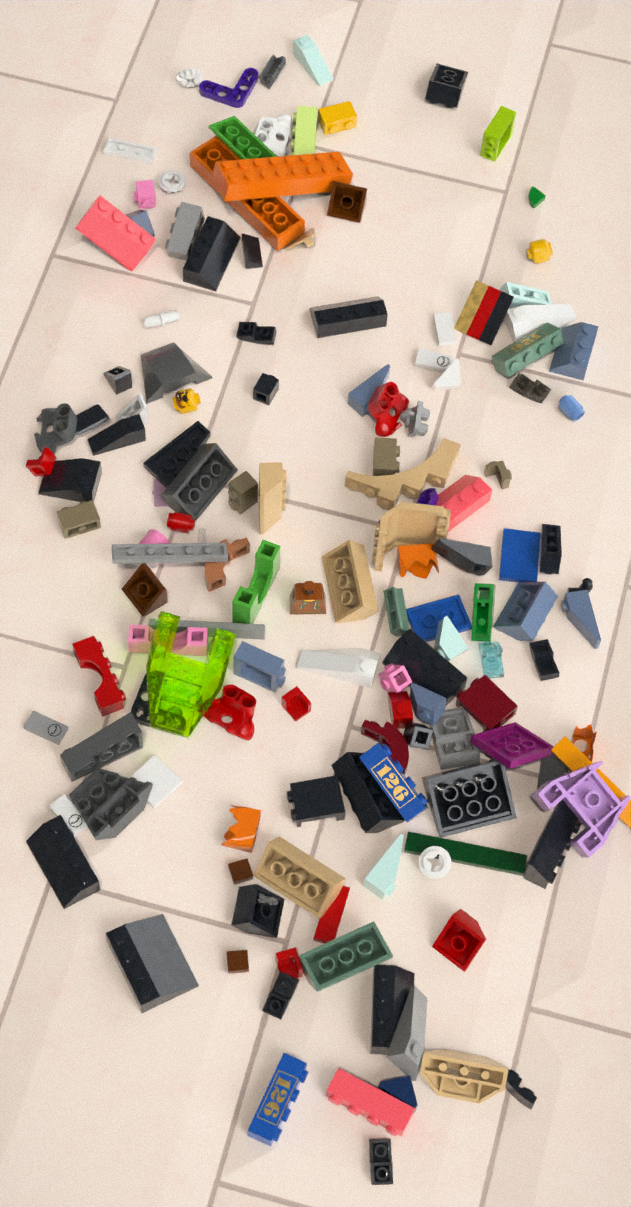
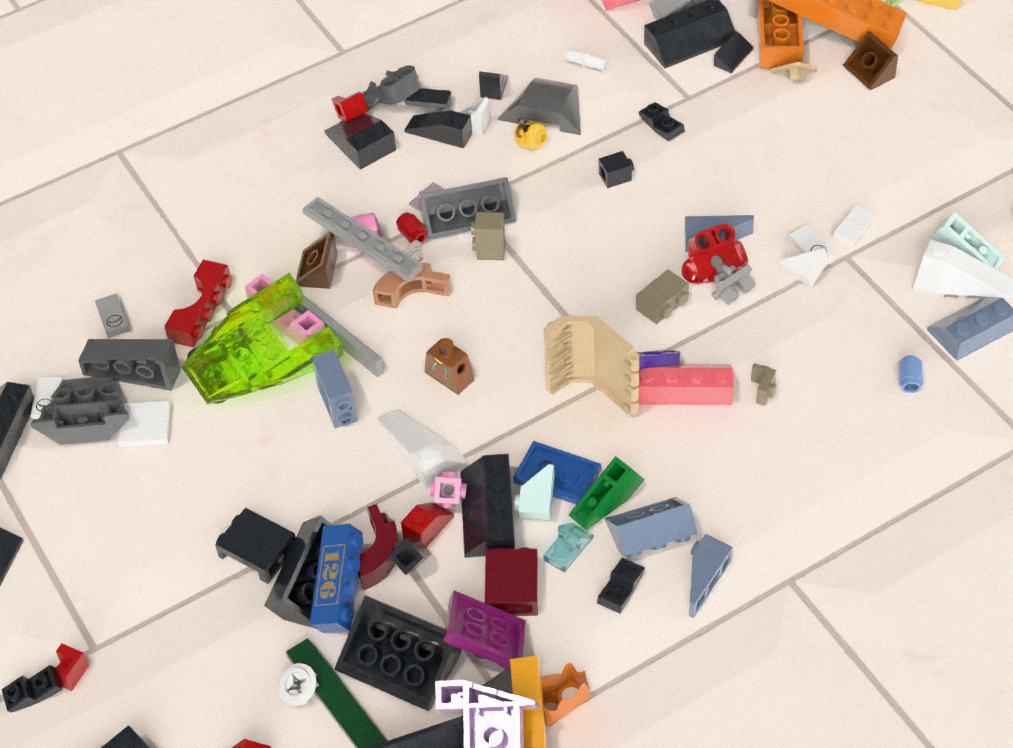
camera: 50 degrees right, 10 degrees down
(78, 519) = (329, 170): dark tan brick -> none
(175, 455) = (461, 172): black wing -> none
(237, 705) = (283, 413): red piece -> none
(237, 961) = (32, 629): reddish brown tile -> none
(240, 871) = (125, 554): reddish brown tile -> none
(243, 834) = (166, 520): orange piece -> none
(249, 601) = (435, 317): bright green arch -> none
(257, 911) = (96, 599): black slope -> none
(271, 494) = (498, 246): tan slope -> none
(296, 703) = (338, 447): red panel -> none
(299, 876) = (163, 596): tan slope -> none
(330, 921) = (157, 656): red tile -> none
(344, 957) = (114, 696): sand green slope -> none
(349, 316) = (764, 158): black slope -> none
(350, 583) = (505, 381): tan slope -> none
(383, 876) = (245, 656): light aqua slope -> none
(396, 611) = (520, 437): sand green piece -> none
(411, 482) = (699, 337): tan arch -> none
(416, 559) = (595, 403): orange piece -> none
(427, 704) = (450, 536): sand blue slope -> none
(452, 739) = (437, 581): light grey slope -> none
(467, 556) = (642, 431): black slope -> none
(483, 312) = (905, 230): sticker -> none
(519, 556) = (704, 473): blue tile -> none
(527, 349) = (918, 291): sand green brick -> none
(532, 390) = (885, 330): clear smoke slope -> none
(550, 549) = (739, 486): black slope -> none
(586, 585) = (740, 549): black arm -> none

